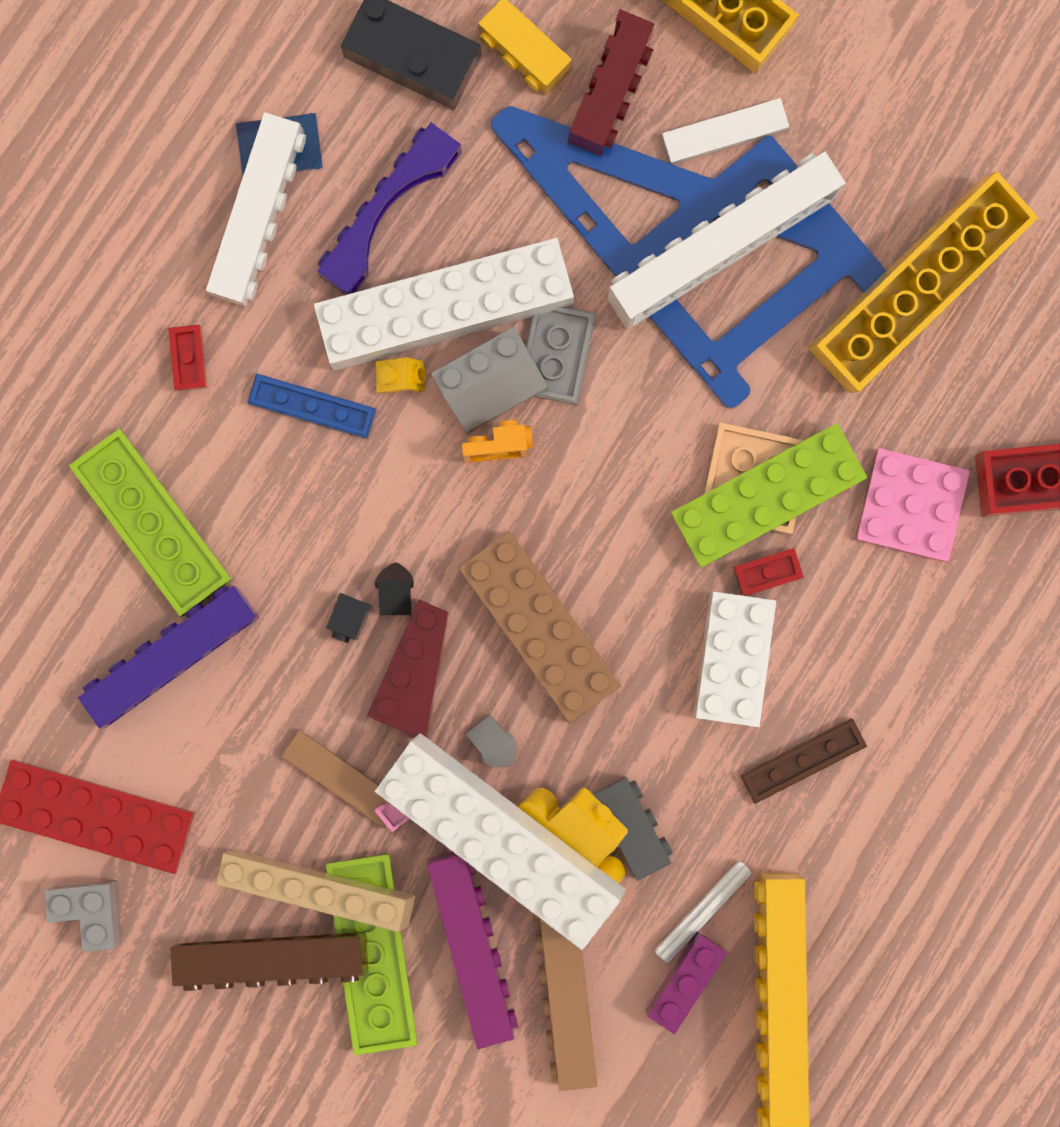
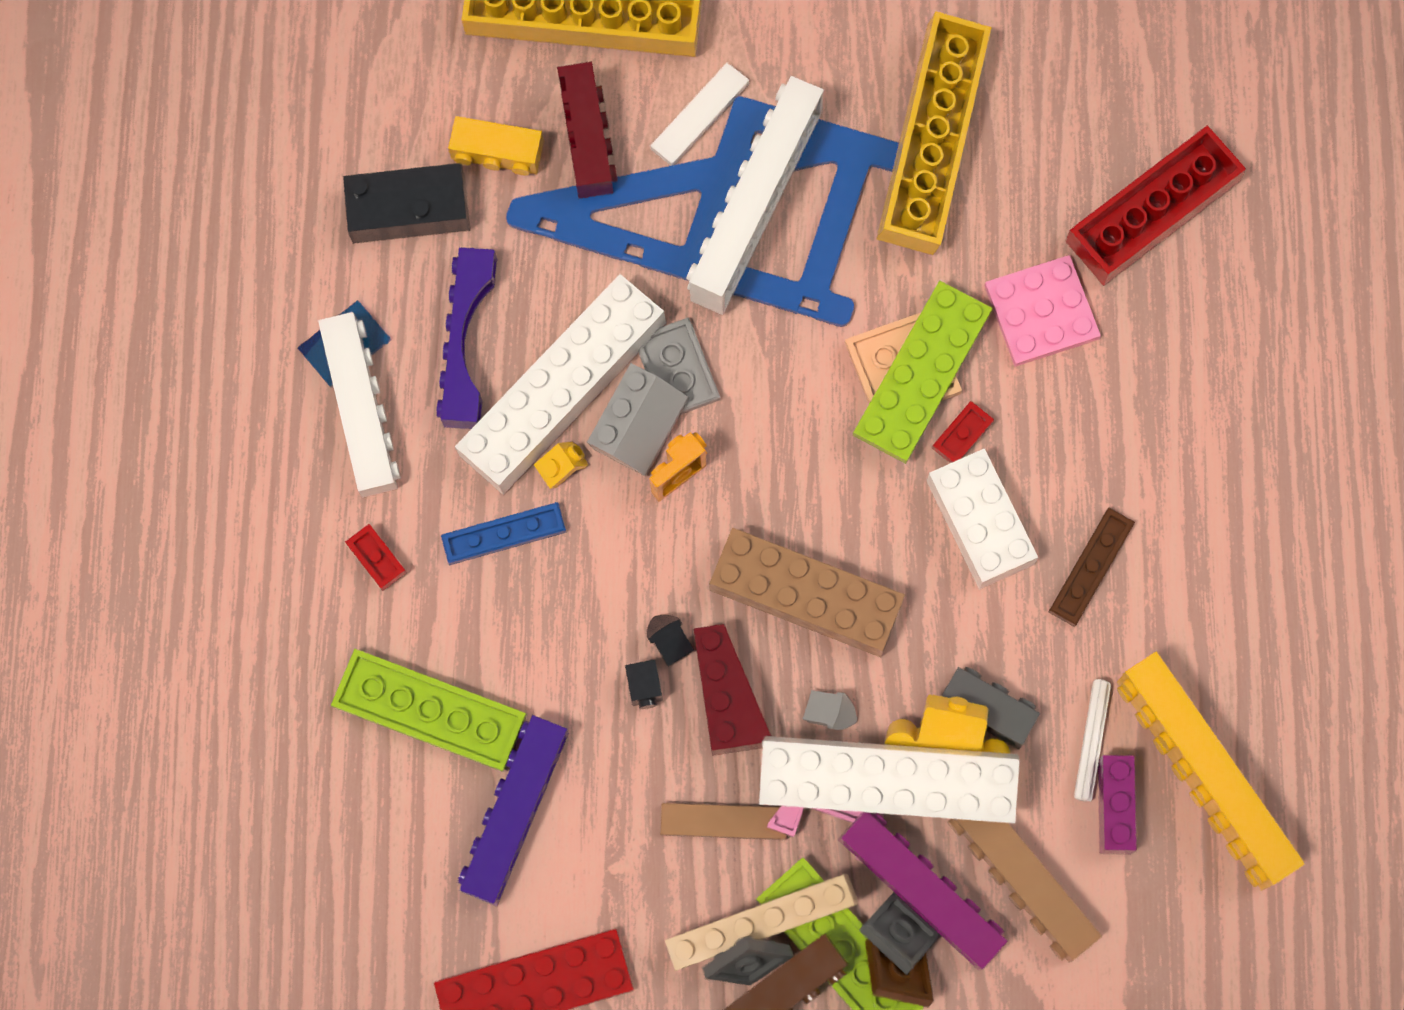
camera: 25 degrees left, 10 degrees down
(281, 916) = (747, 961): none -> dark grey plate
(405, 1006) = (893, 983): none -> reddish brown plate
(427, 973) = (899, 933): none -> dark grey tile

